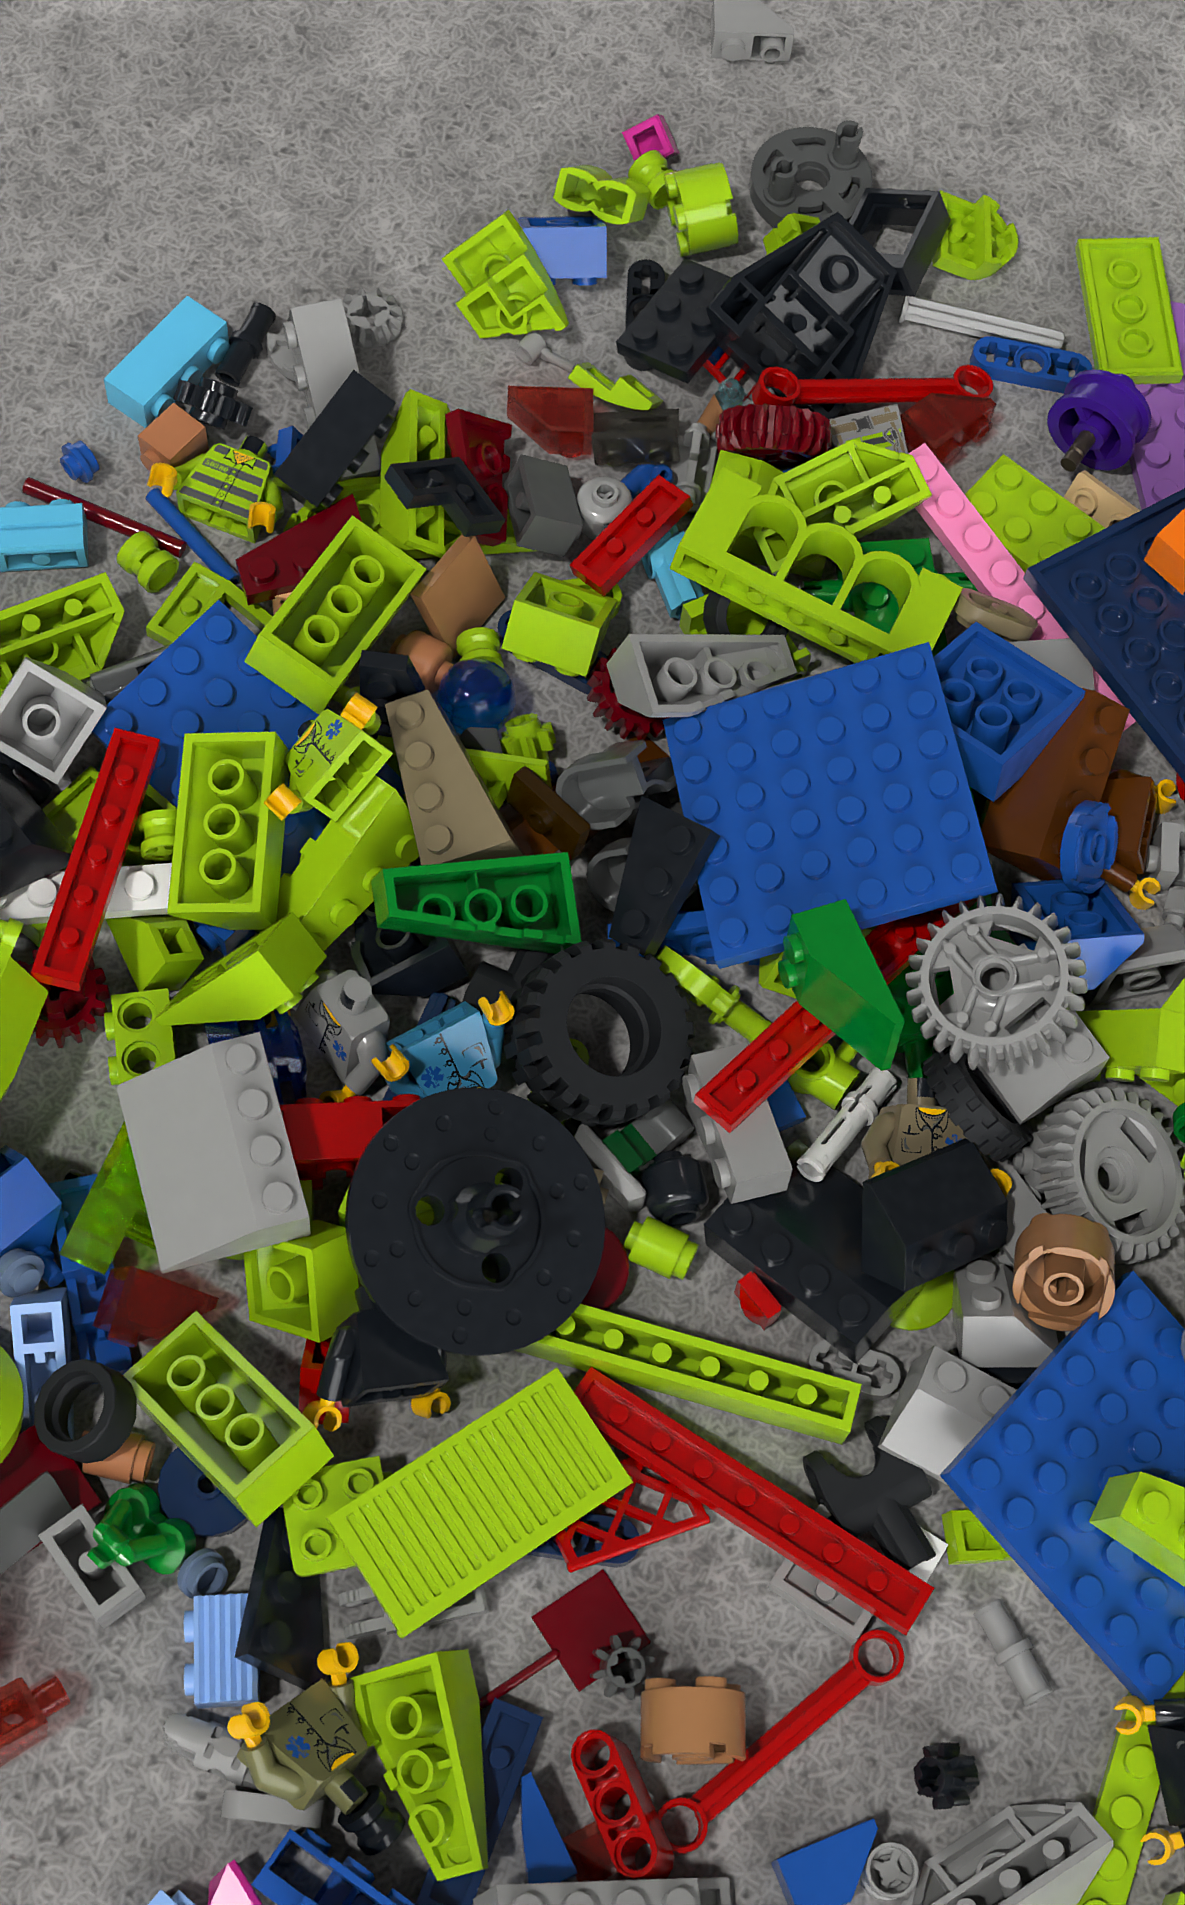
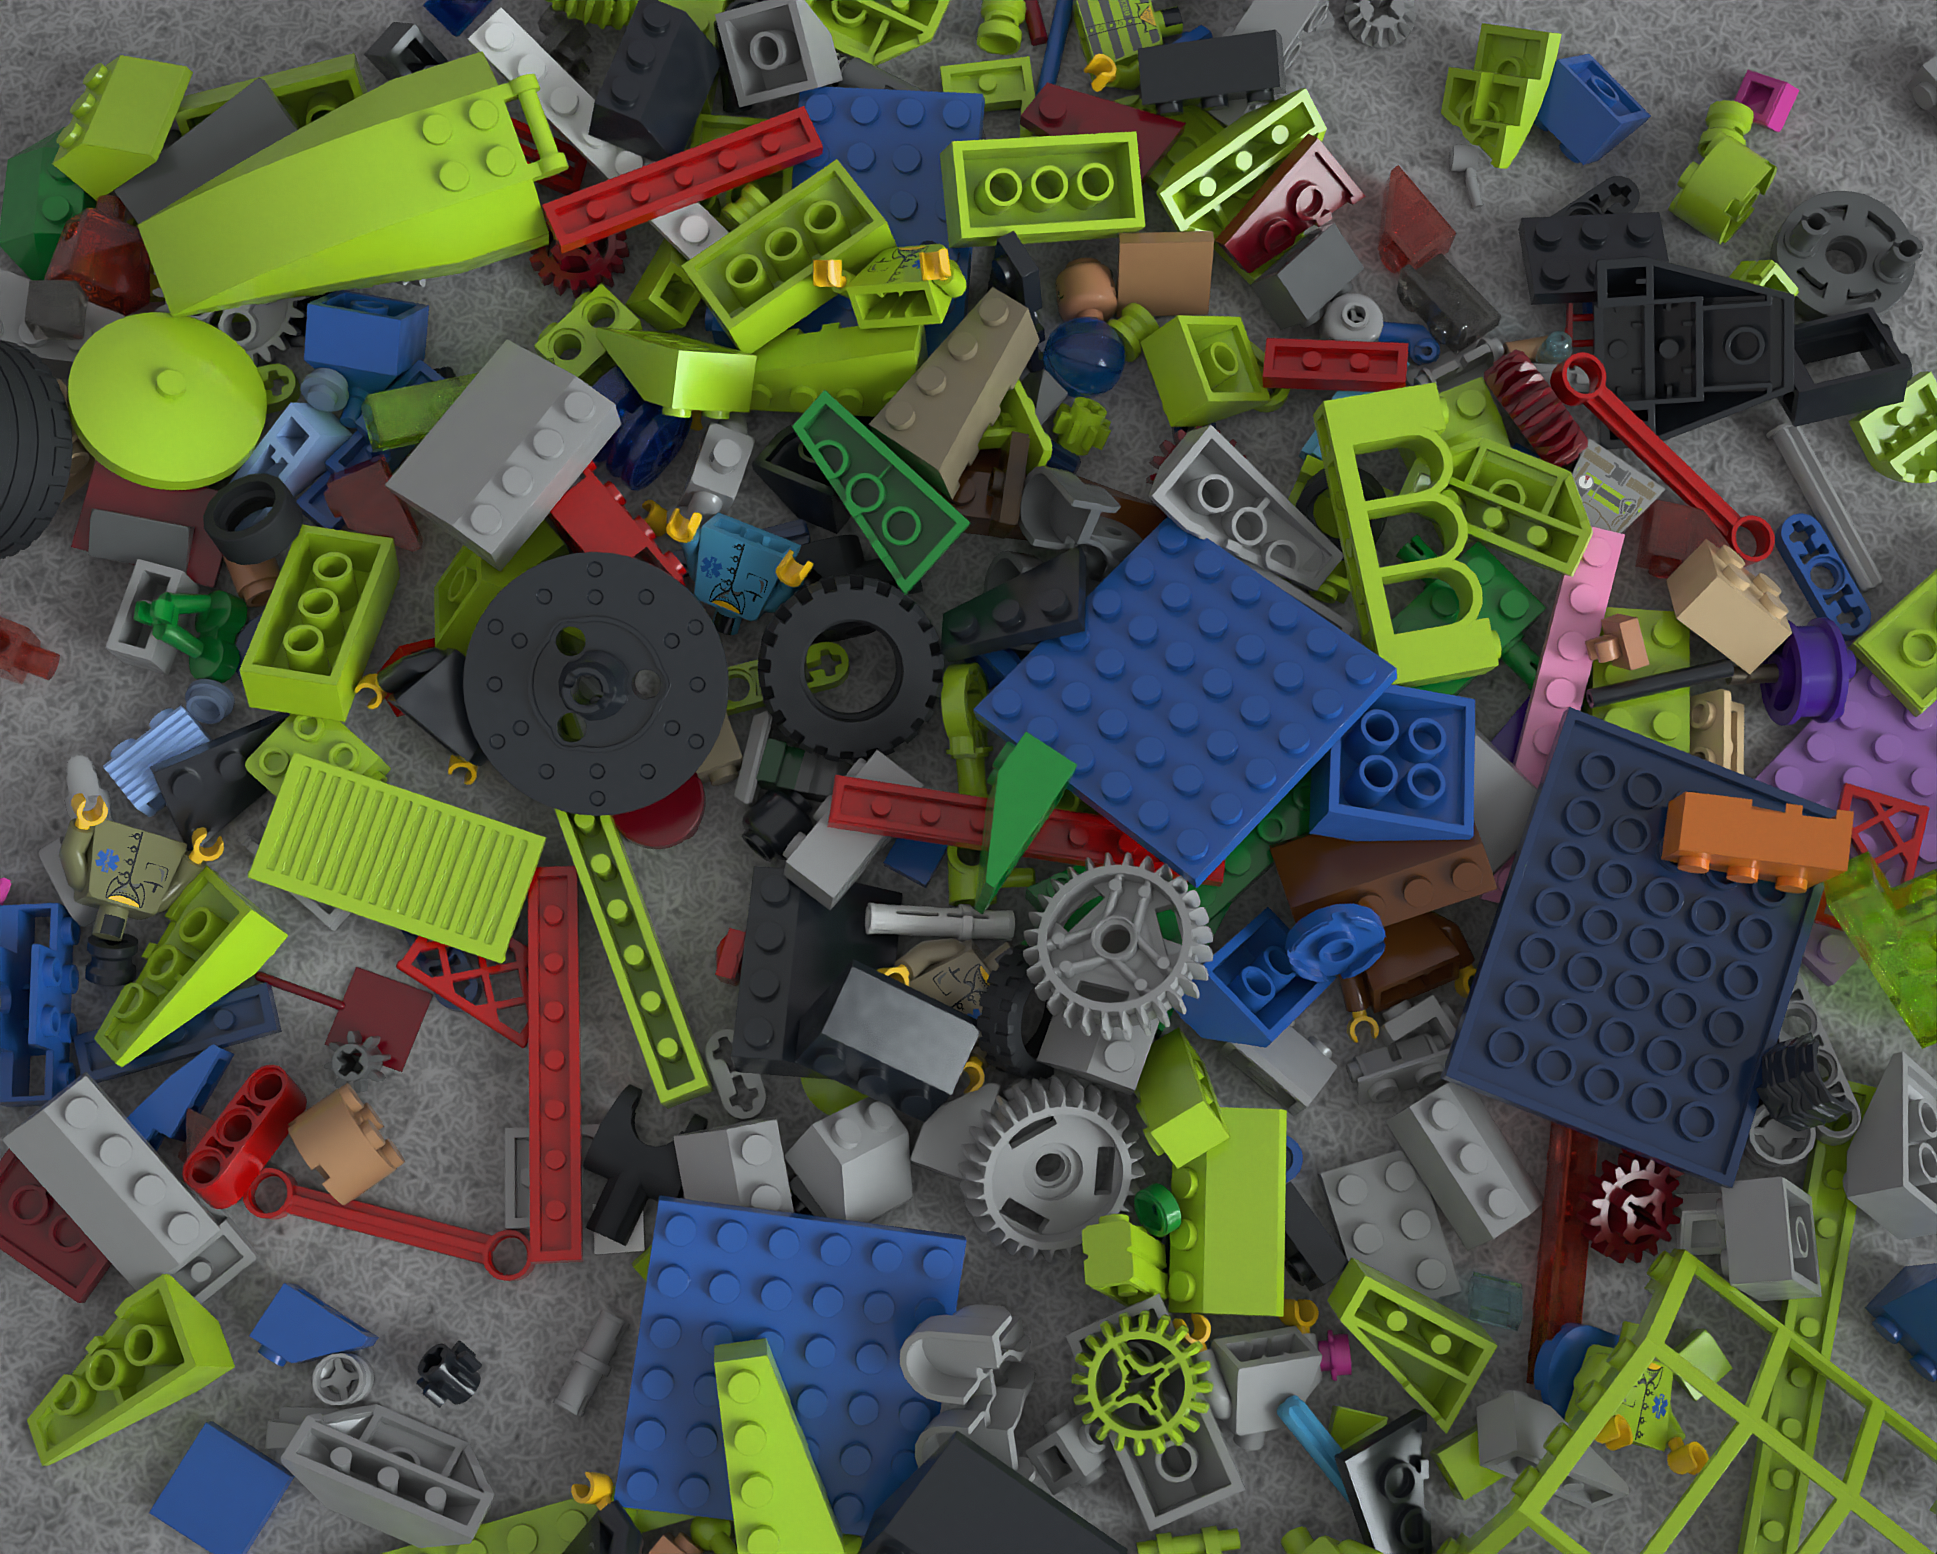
camera: 60 degrees right, 10 degrees up
(450, 485) = (1238, 188): black plate -> none
(595, 190) = (1663, 99): lime brick -> none
(625, 392) = (1482, 265): lime slope -> none
(660, 1248) = (720, 850): lime brick -> none
(995, 614) = (1504, 713): dark tan plate -> none
(1002, 503) = (1620, 643): none -> nougat tile
(1021, 422) = (1729, 605): none -> tan brick
(1045, 506) = (1660, 683): none -> black piece
(1064, 1270) = (918, 1180): medium nougat brick -> none

